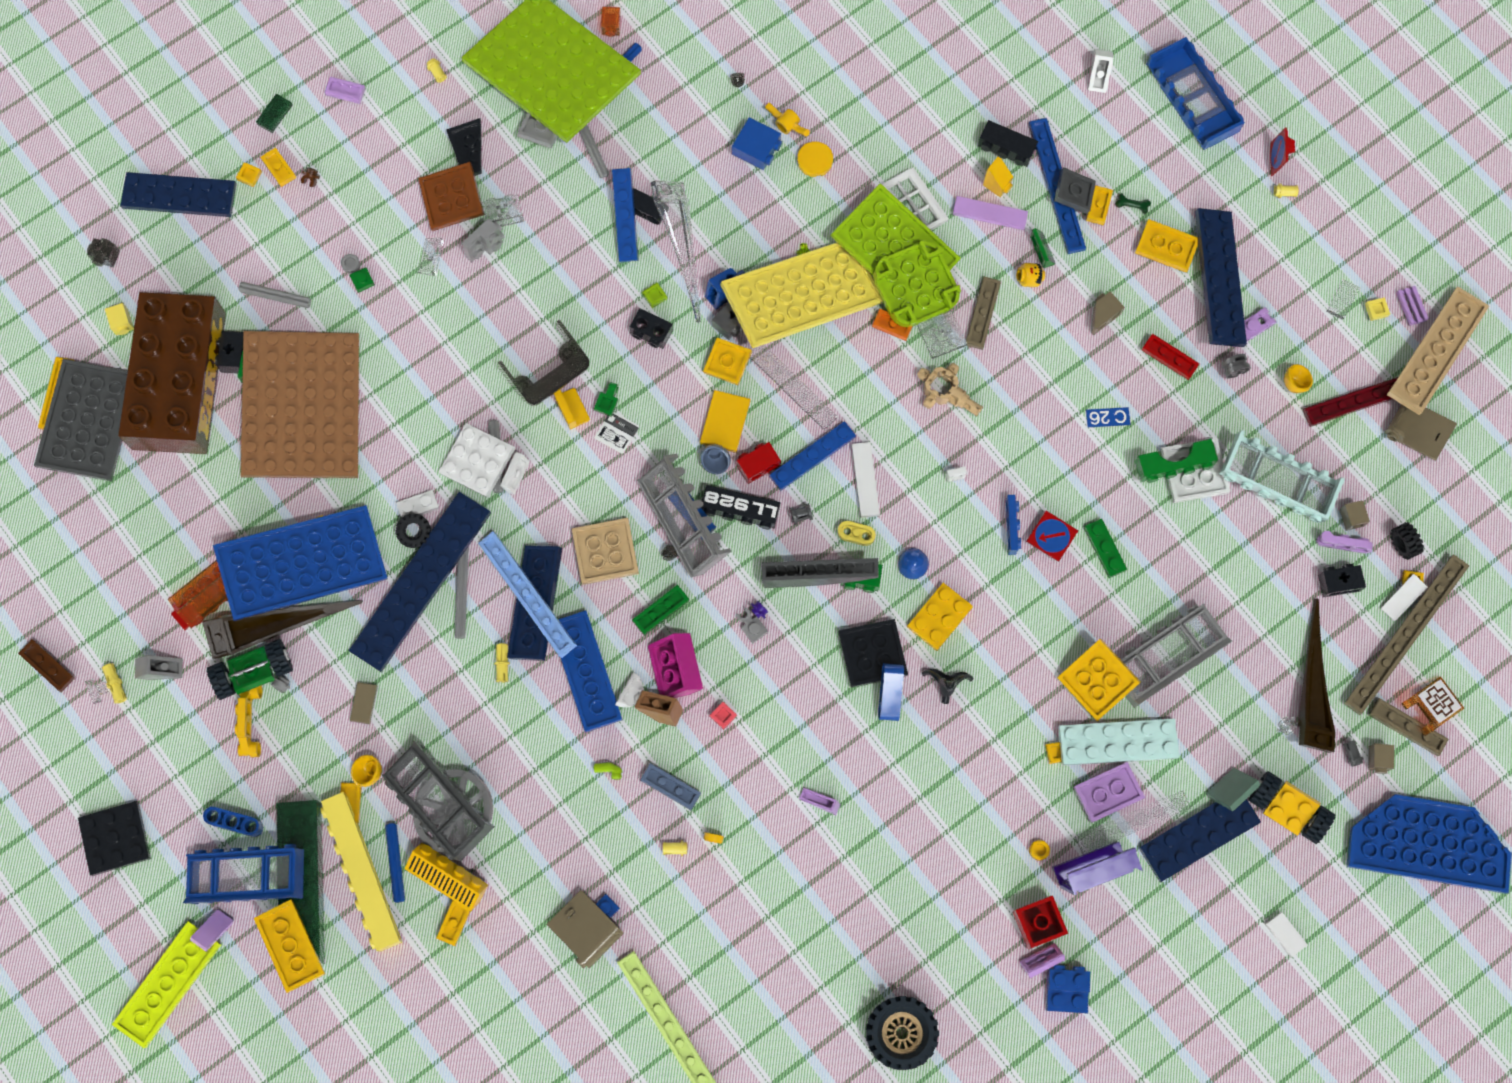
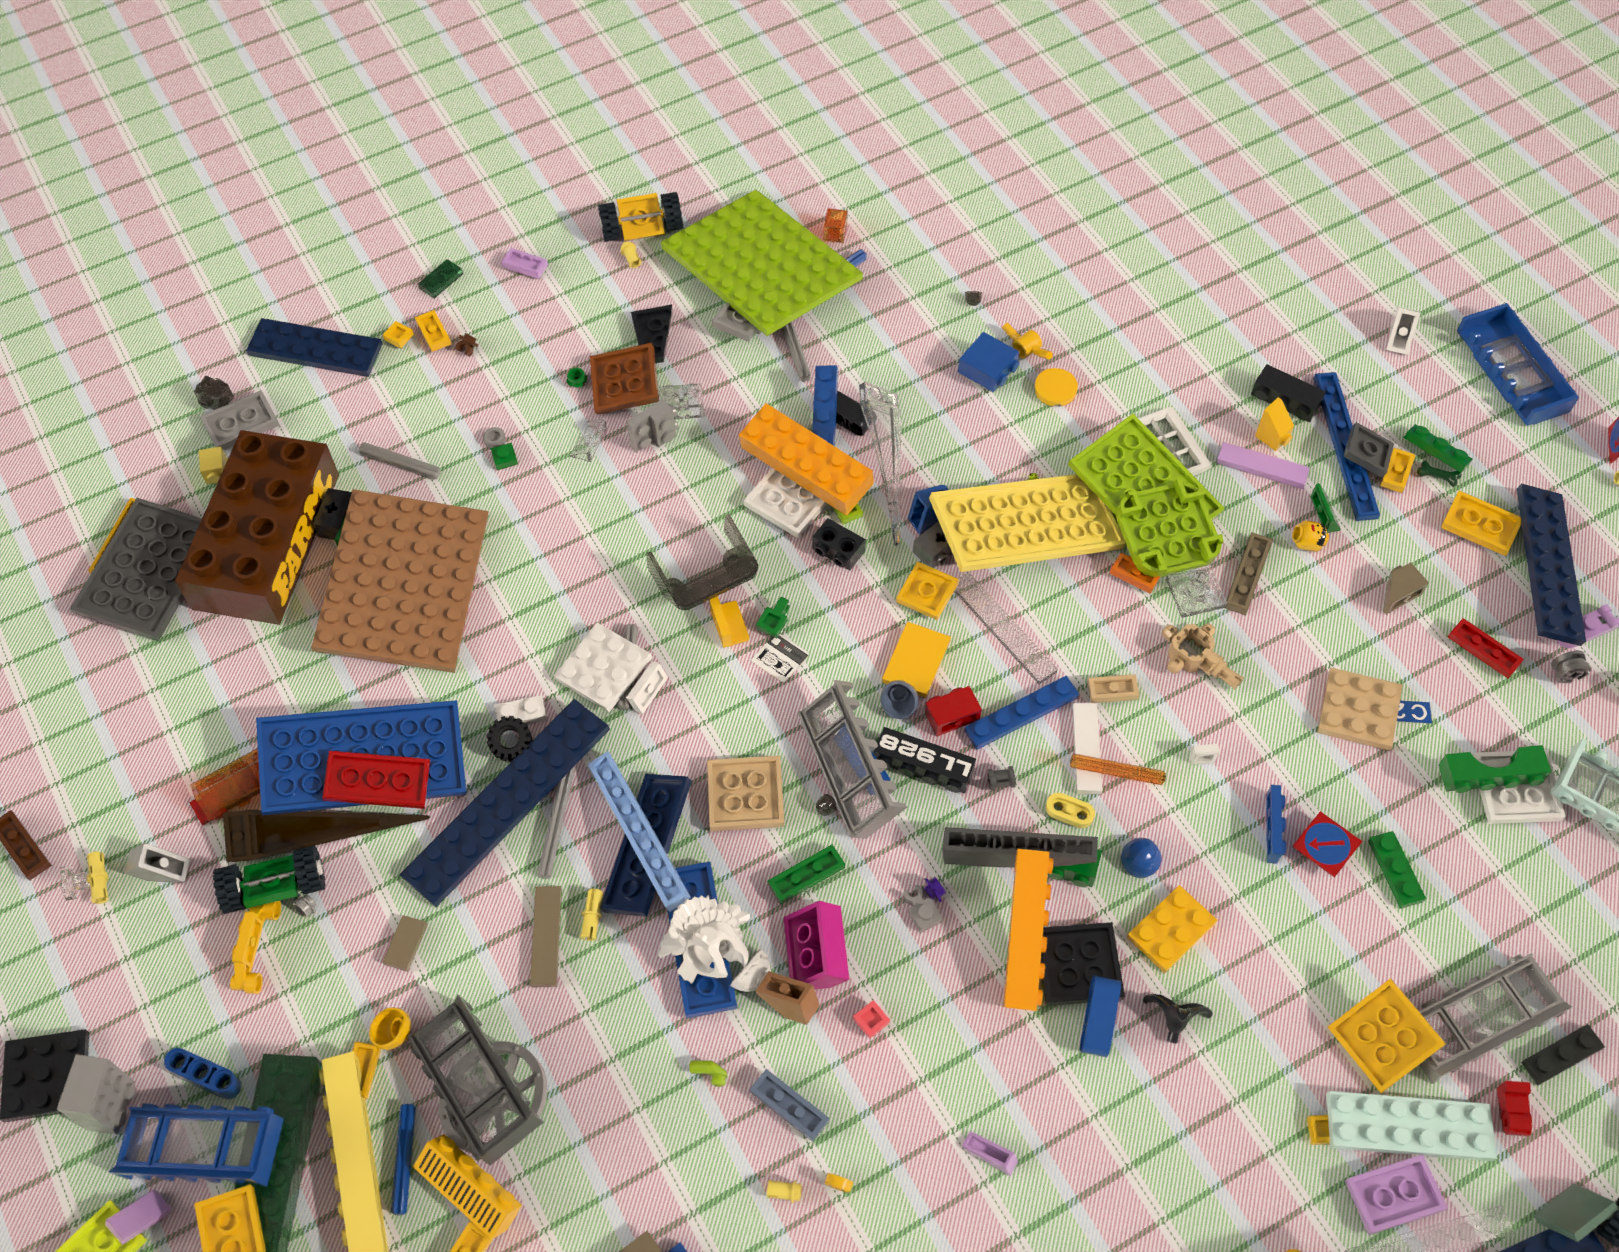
camera: 10 degrees right, 15 degrees down
(131, 274) = (245, 414): none -> light grey plate
(161, 850) = (96, 1094): none -> light grey brick
(316, 580) = (376, 779): none -> red tile
(410, 194) = (579, 375): none -> green plate
(439, 33) = (640, 216): none -> plate
(470, 684) = (546, 936): none -> dark tan tile
(589, 670) = (705, 935): none -> white piece
(606, 289) = (784, 503): none -> white plate
(615, 257) = (806, 459): none -> light orange brick
(831, 635) = (1026, 930): none -> light orange brick
(882, 427) = (1113, 688): none -> tan plate
(890, 495) = (1117, 769): none -> clear orange axle
(1074, 420) = (1360, 709): none -> tan plate
(1131, 180) = (1438, 448): none -> green plate
(1192, 719) = (1515, 1108): none -> red leg
(1227, 674) = (1563, 1054): none -> pearl dark grey plate

